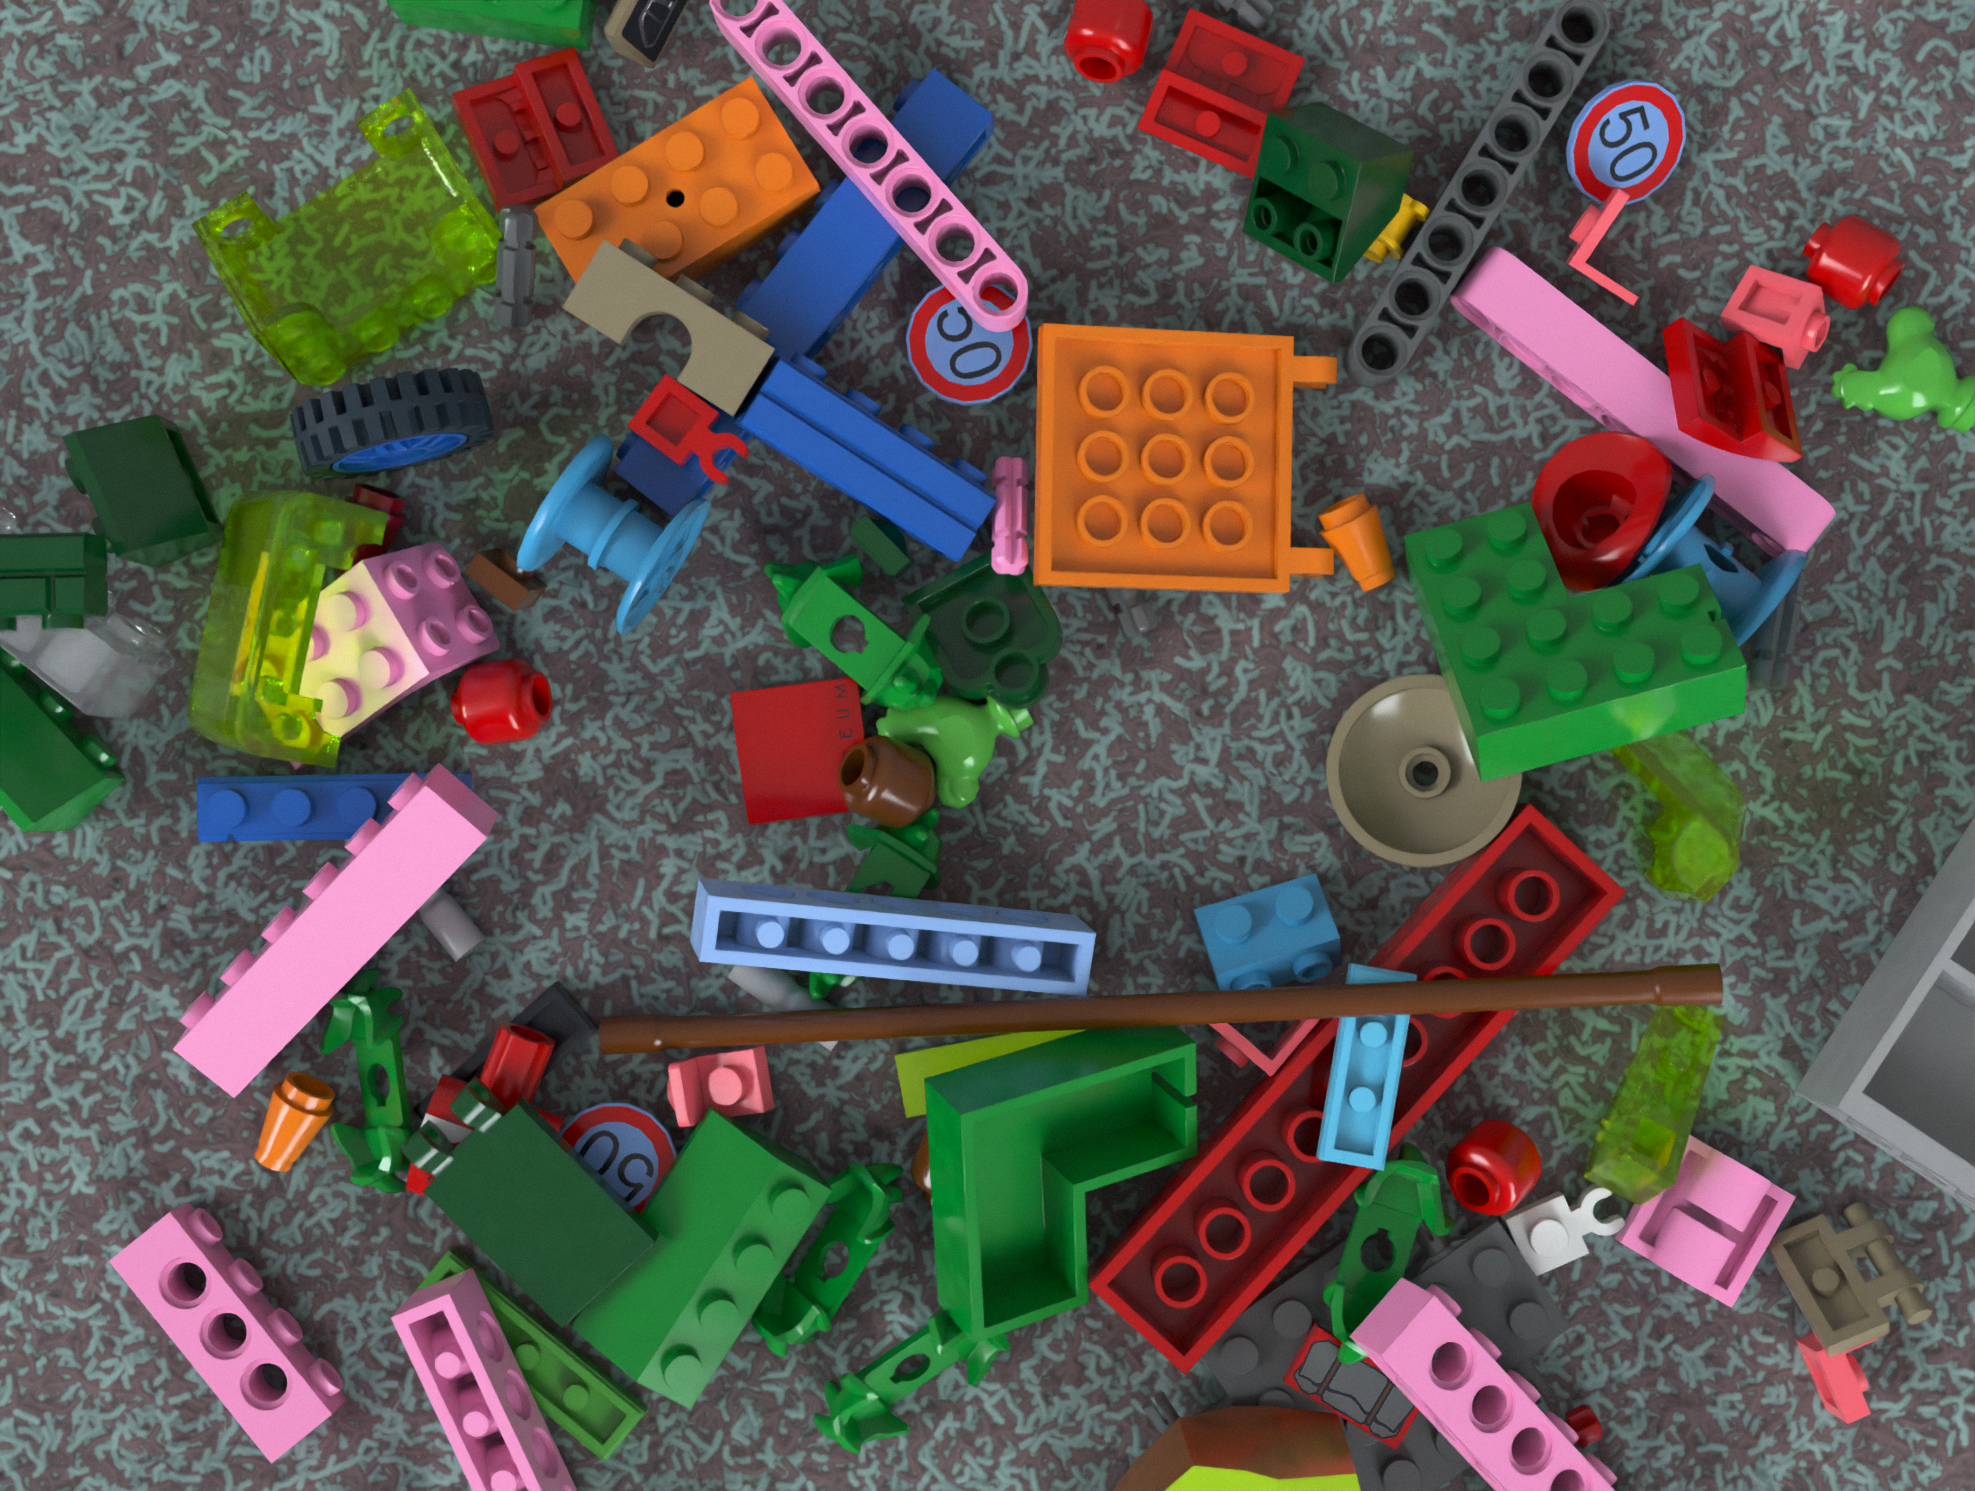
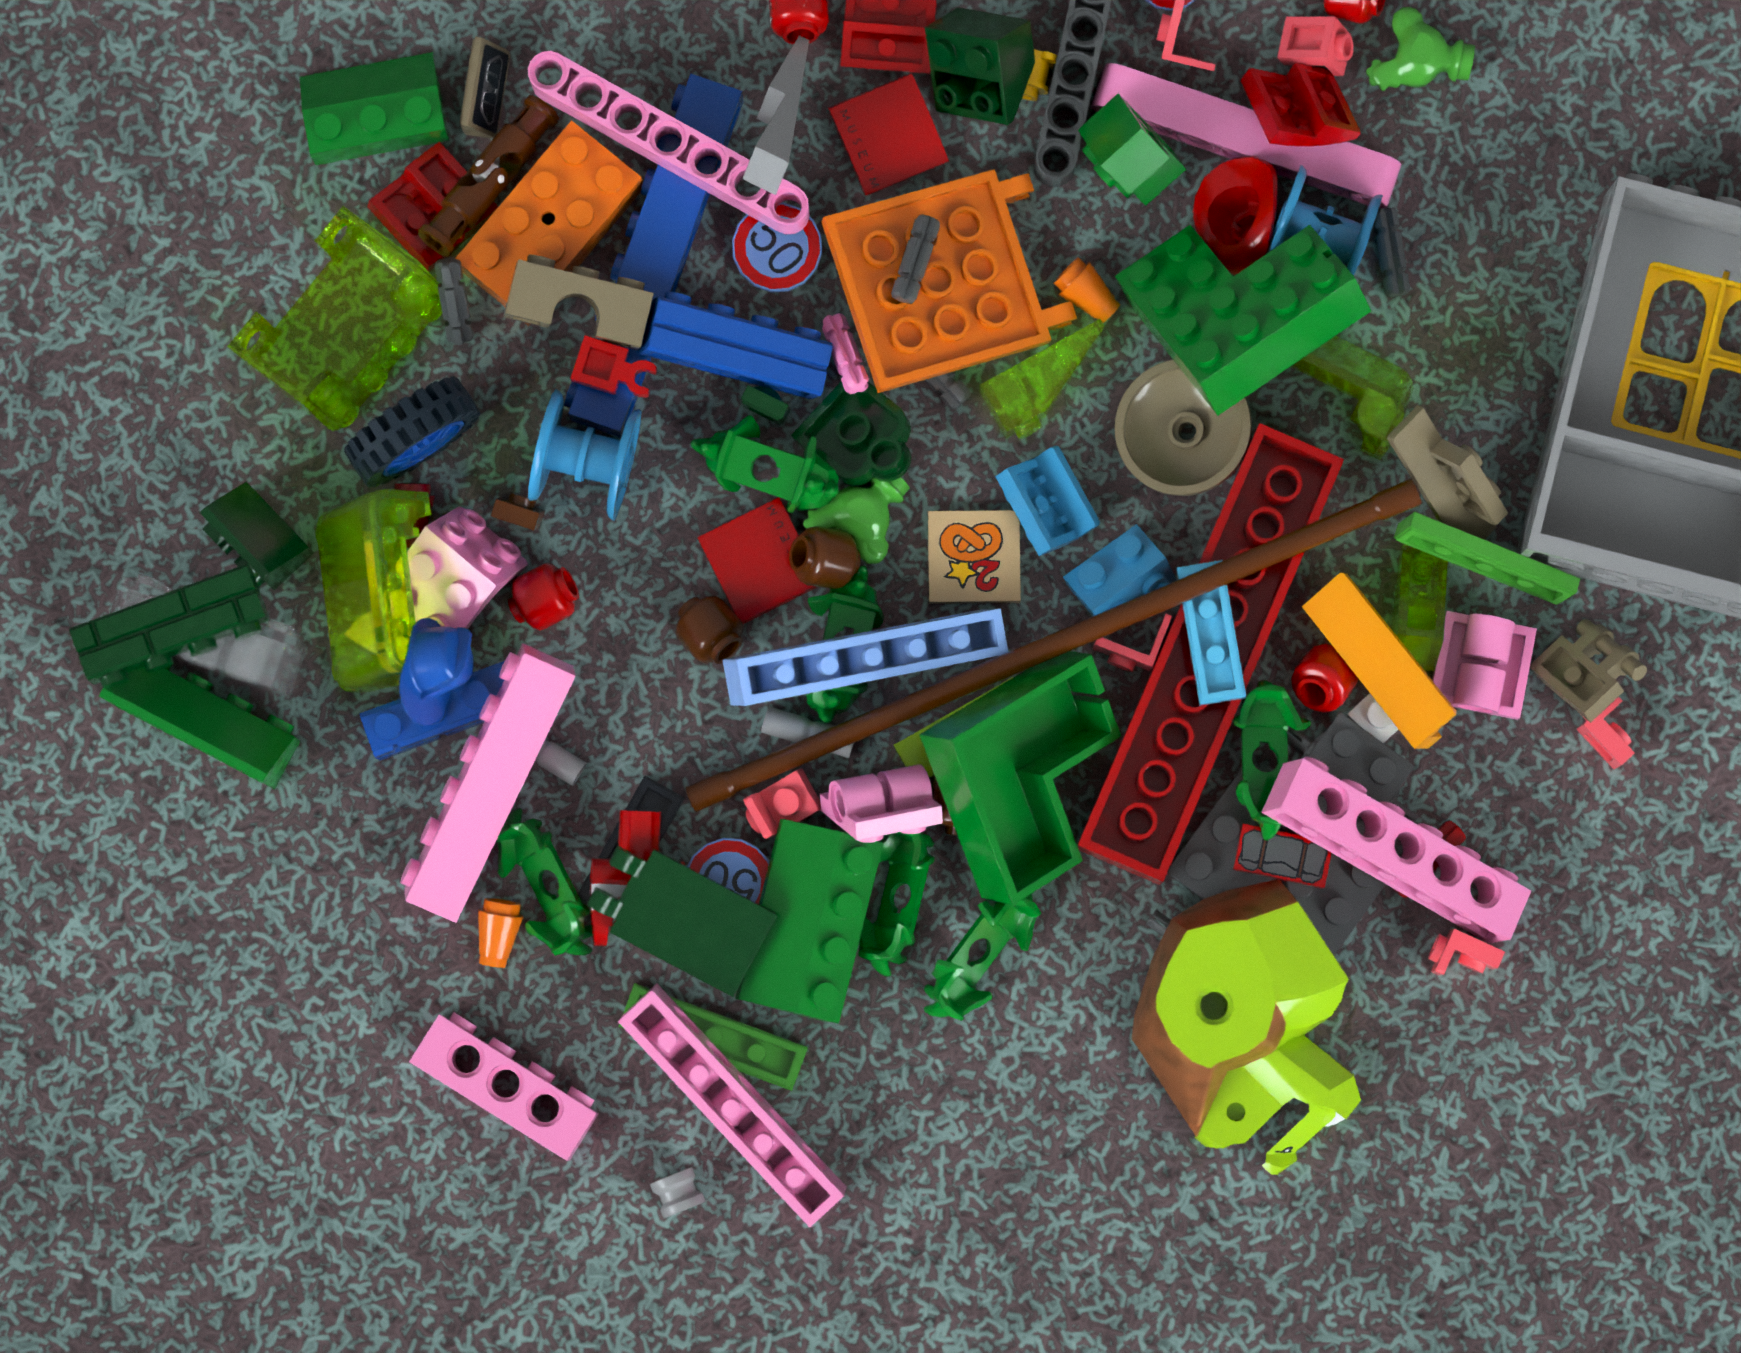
camera: 15 degrees left, 5 degrees down
(300, 757) = (433, 667): none -> blue piece
(602, 124) = (485, 180): none -> reddish brown piece
(704, 820) = (709, 629): none -> reddish brown head
(848, 1144) = (882, 803): none -> bright pink plate
(1031, 158) = (780, 113): none -> light grey slope
(1087, 842) = (973, 557): none -> tan tile
(1146, 423) = (915, 259): none -> dark grey axle
(1169, 241) = (888, 134): none -> red slope
(1210, 804) = (1048, 501): none -> dark azure bracket
(1243, 644) = (1031, 388): none -> clear neon green slope
(1482, 375) = (1129, 151): none -> green brick
(1579, 1179) = (1380, 661): none -> light orange panel
(1764, 970) = (1447, 476): none -> dark tan bracket
(1767, 1087) = (1486, 558): none -> bright green tile

